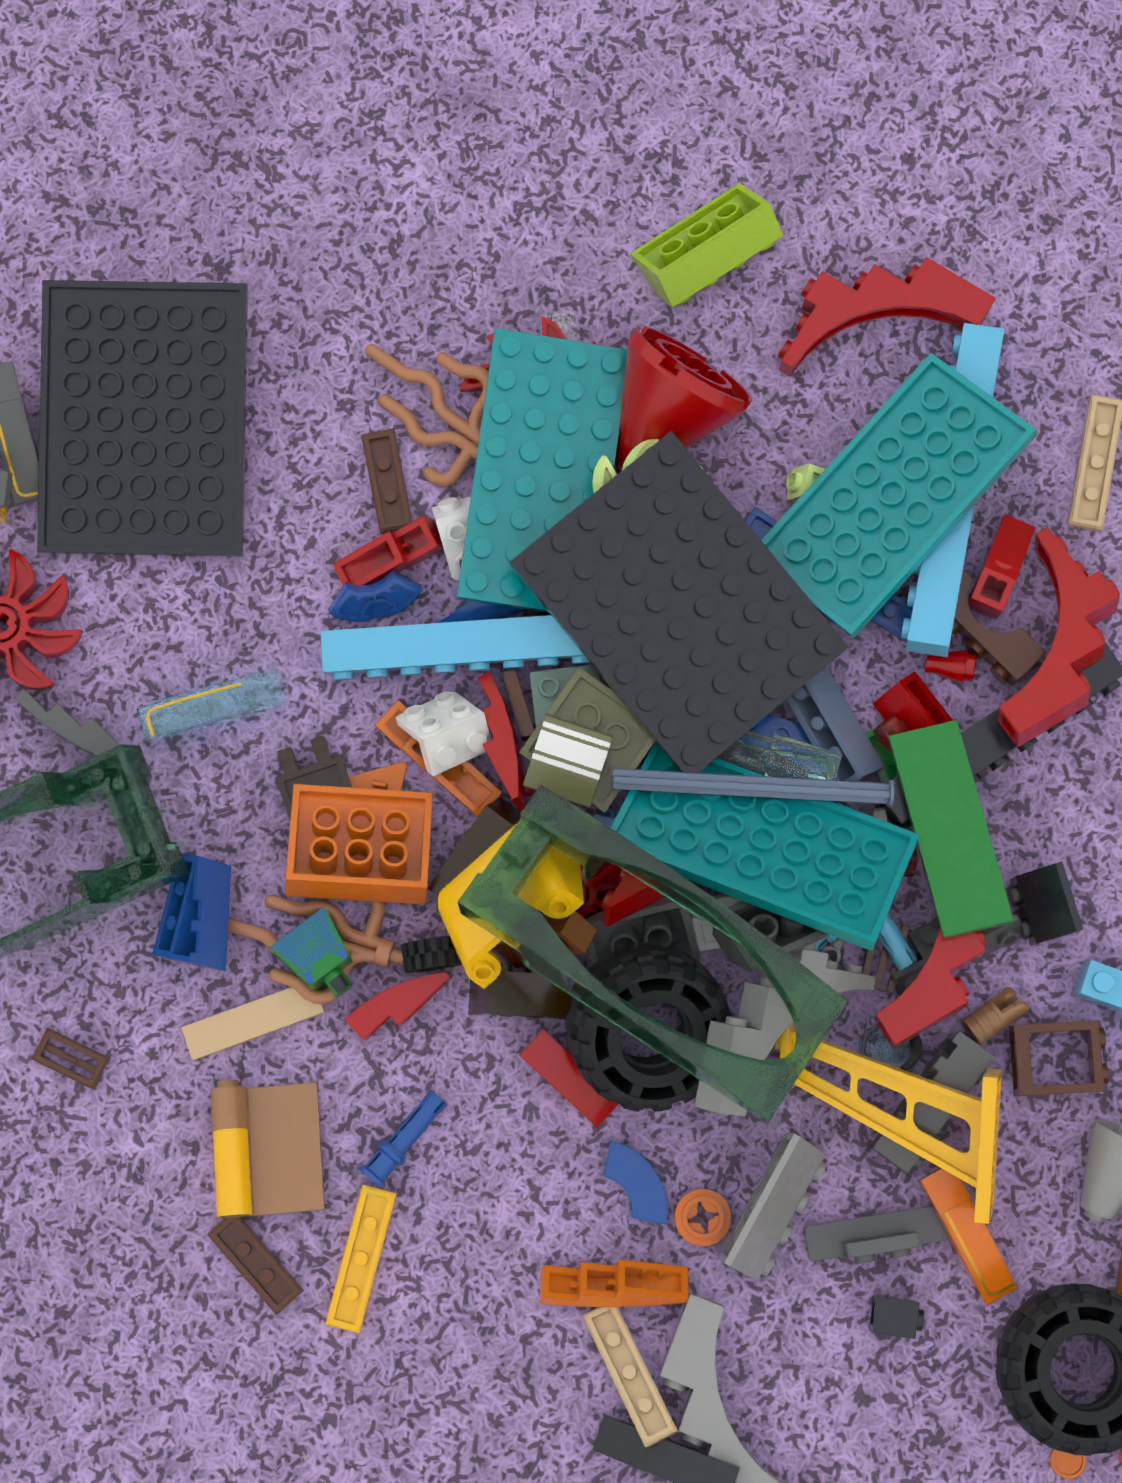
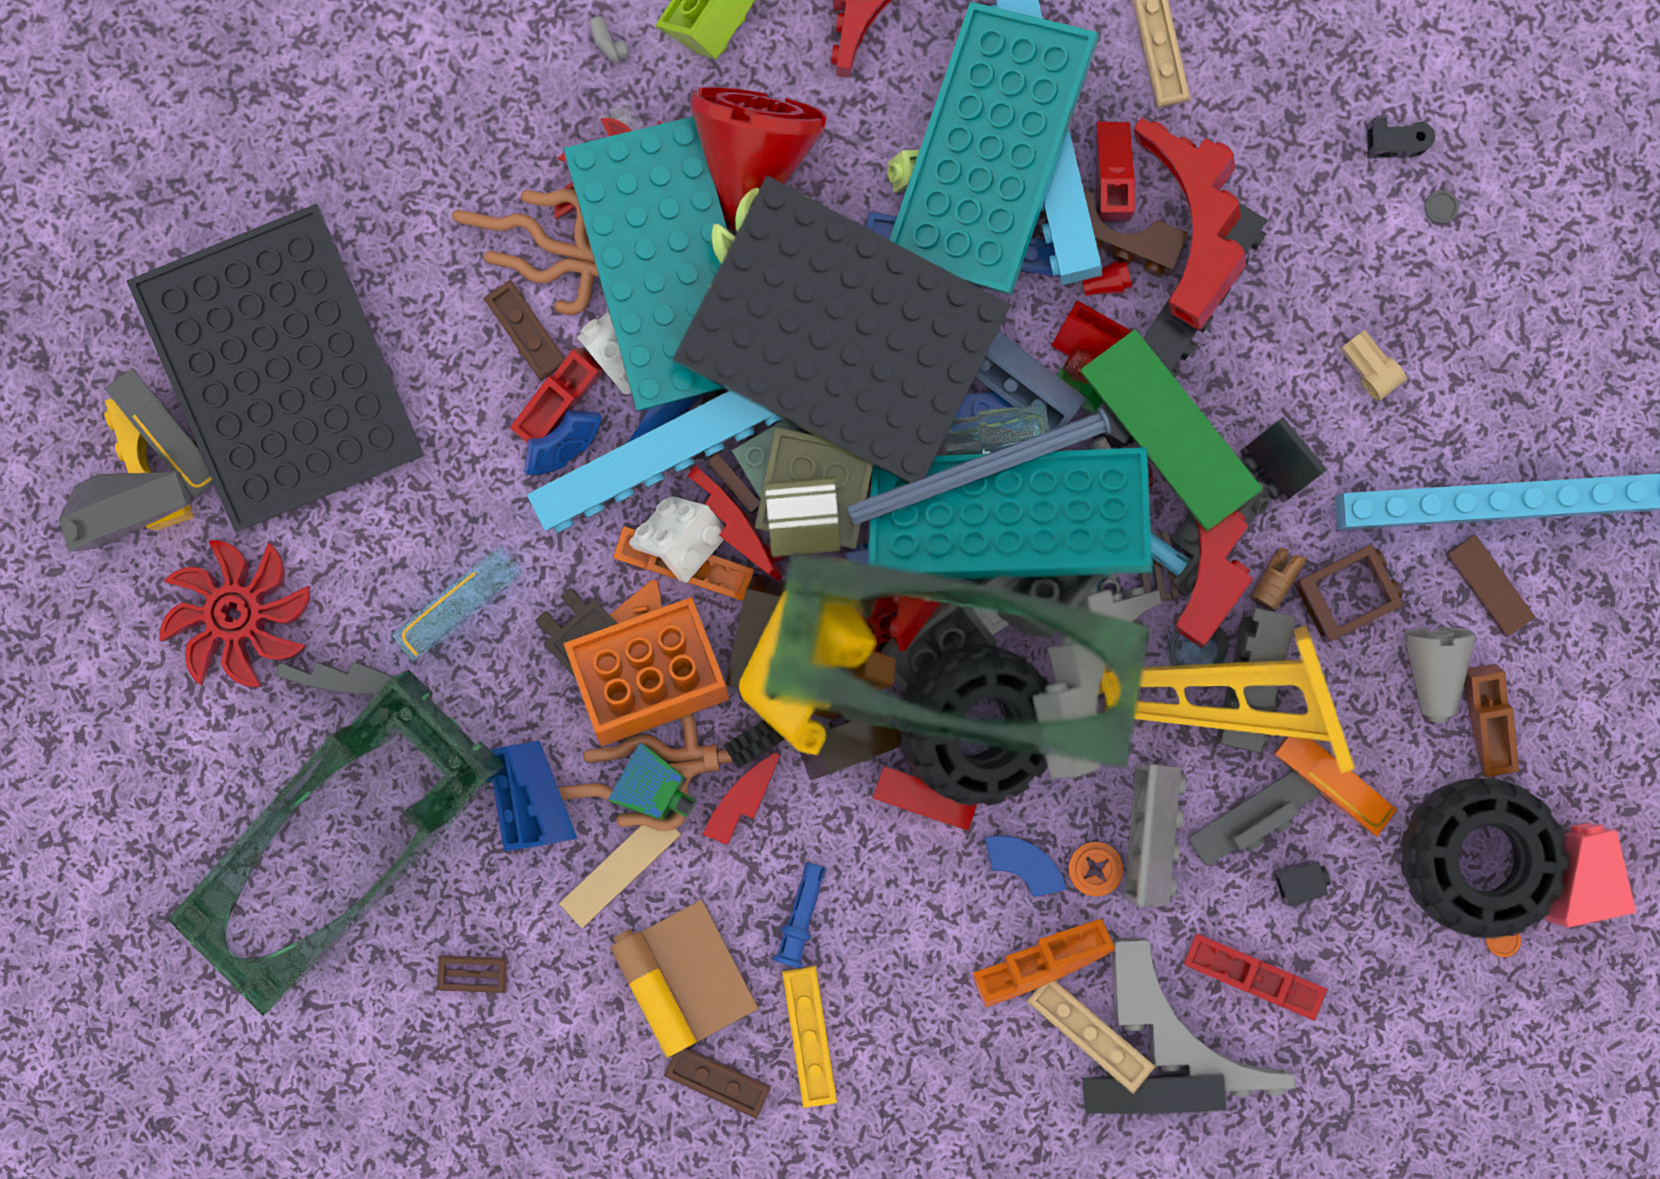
camera: 20 degrees left, 5 degrees up
(576, 245) = (604, 41): none -> light grey arm
(812, 1389) = (1255, 977): none -> red slope

